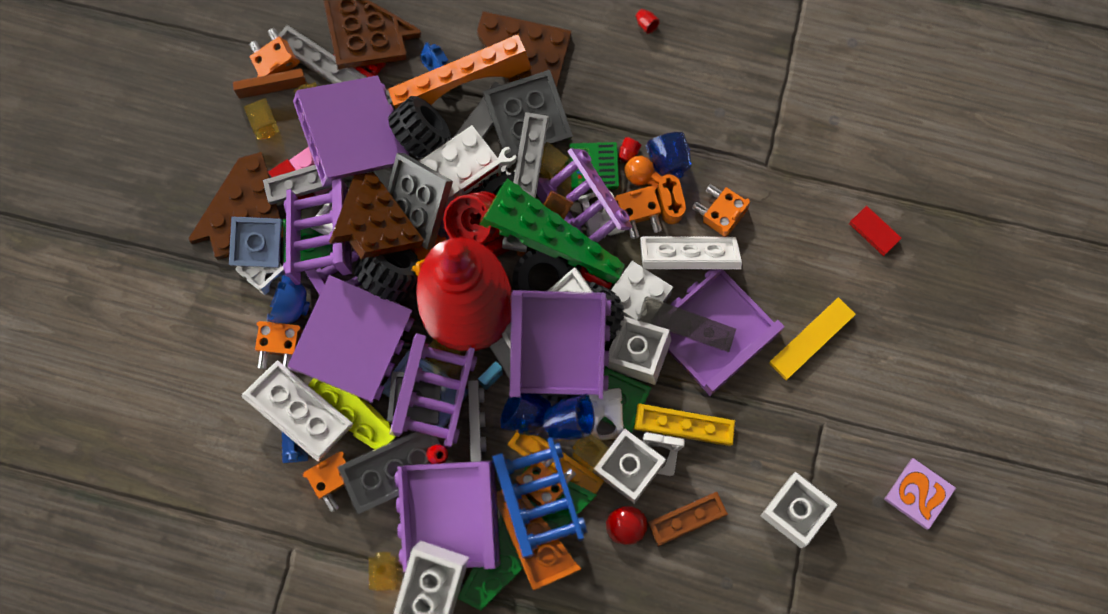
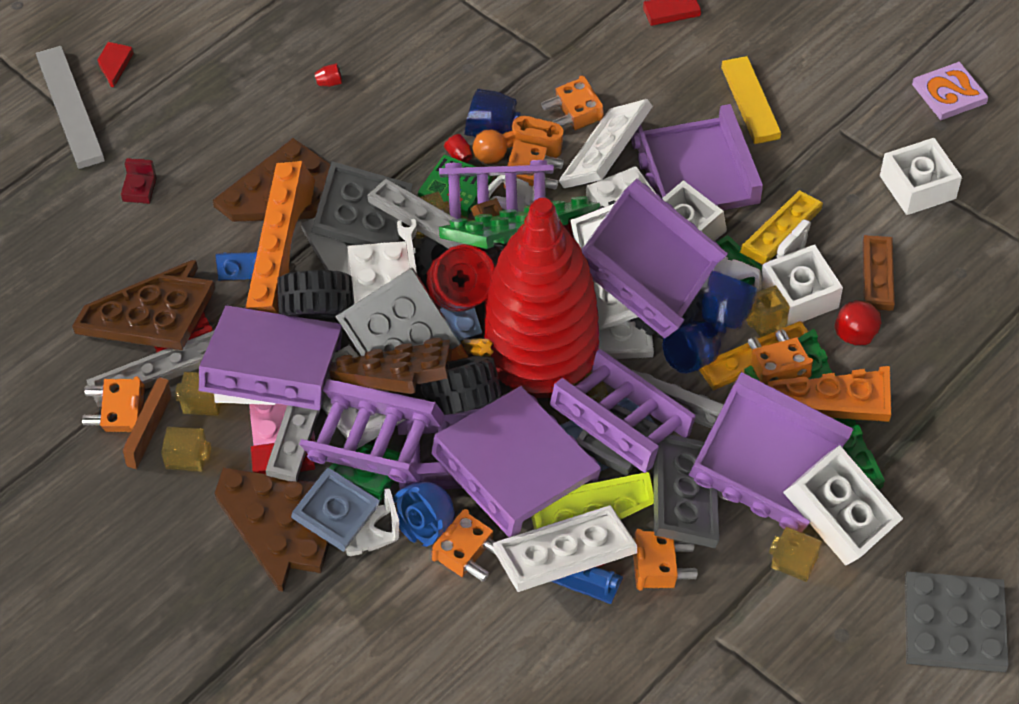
camera: 60 degrees left, 20 degrees down
(431, 454) = (694, 438): red hose -> none
(492, 374) = (629, 358): medium azure tile -> none
(521, 517) = (796, 384): blue fence -> none
(687, 324) = (689, 168): clear smoke tile -> none

